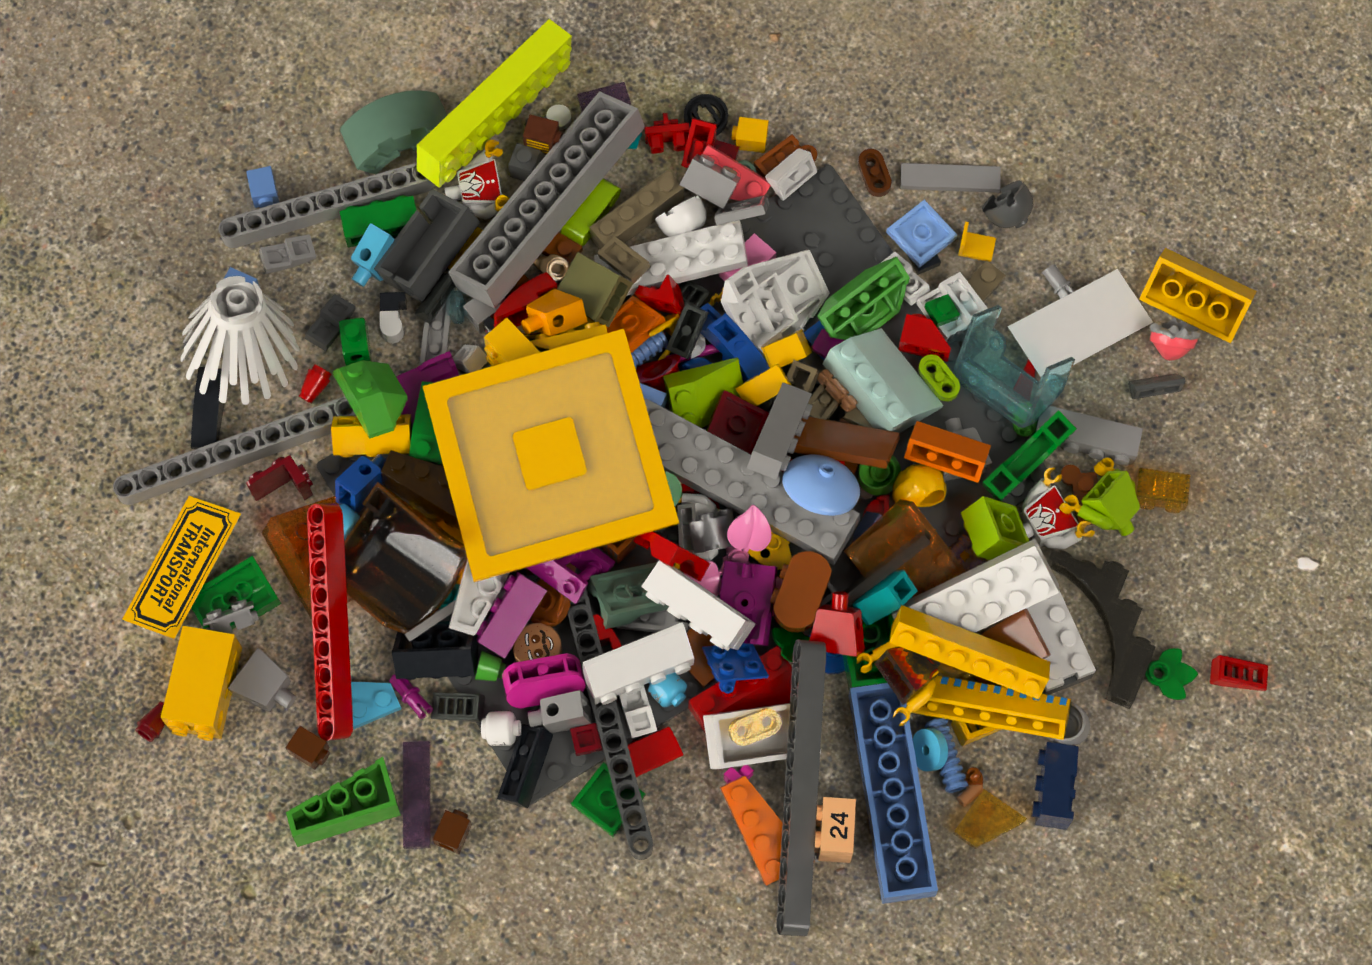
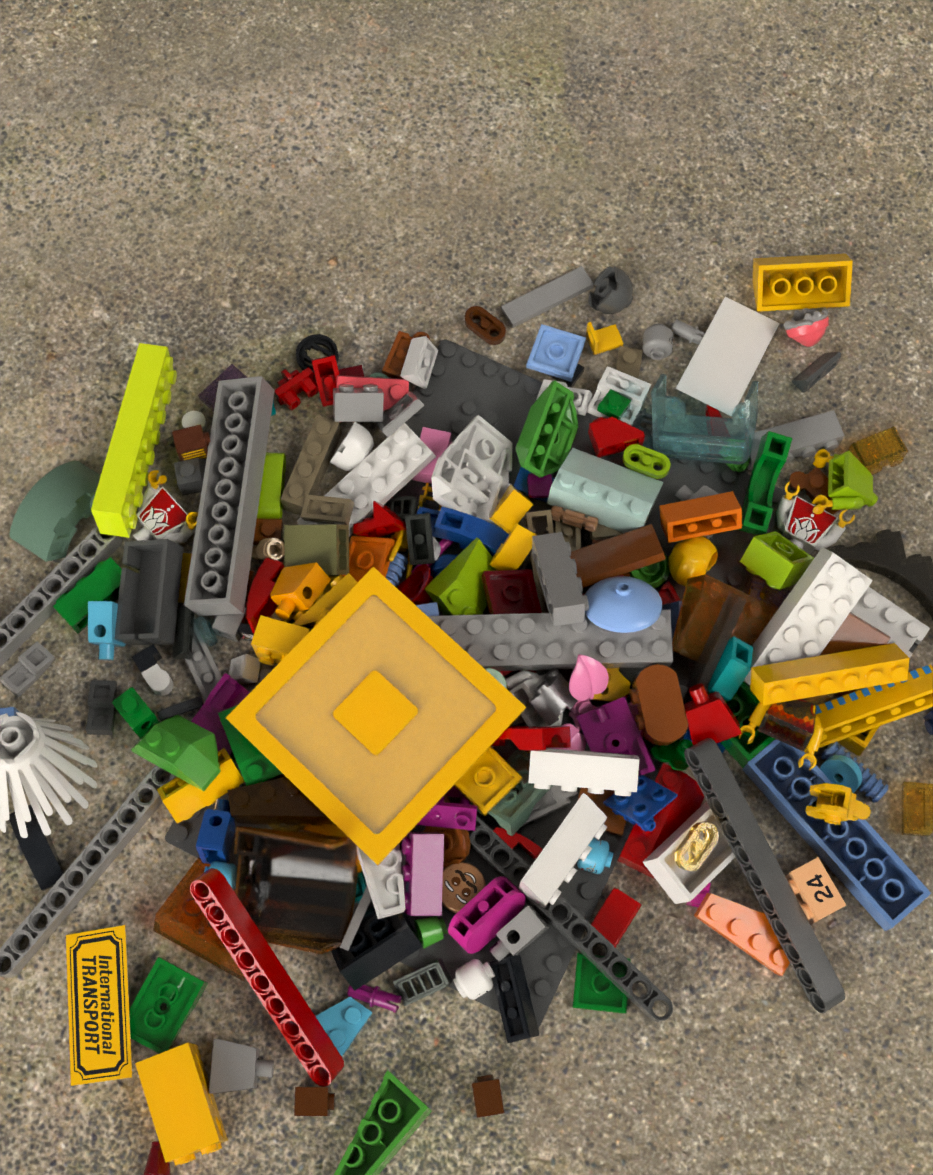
camera: 30 degrees left, 0 degrees up
(239, 613) = (178, 1017): light grey hinge -> none
(281, 472) = (138, 867): dark red bracket -> none
(314, 383) = (120, 769): red cone -> none
(395, 360) = (180, 708): none -> black piece
(416, 795) = (434, 1083): clear purple plate -> none
(586, 739) = (552, 943): dark red plate -> none
(612, 567) = (488, 781): none -> yellow tile
(638, 713) = (583, 894): white slope -> none
(751, 134) = (365, 349): yellow brick -> none
(900, 765) = (836, 804): none -> yellow hinge
(974, 788) = (895, 786): arm -> none
(1024, 275) = (658, 341): none -> light grey head

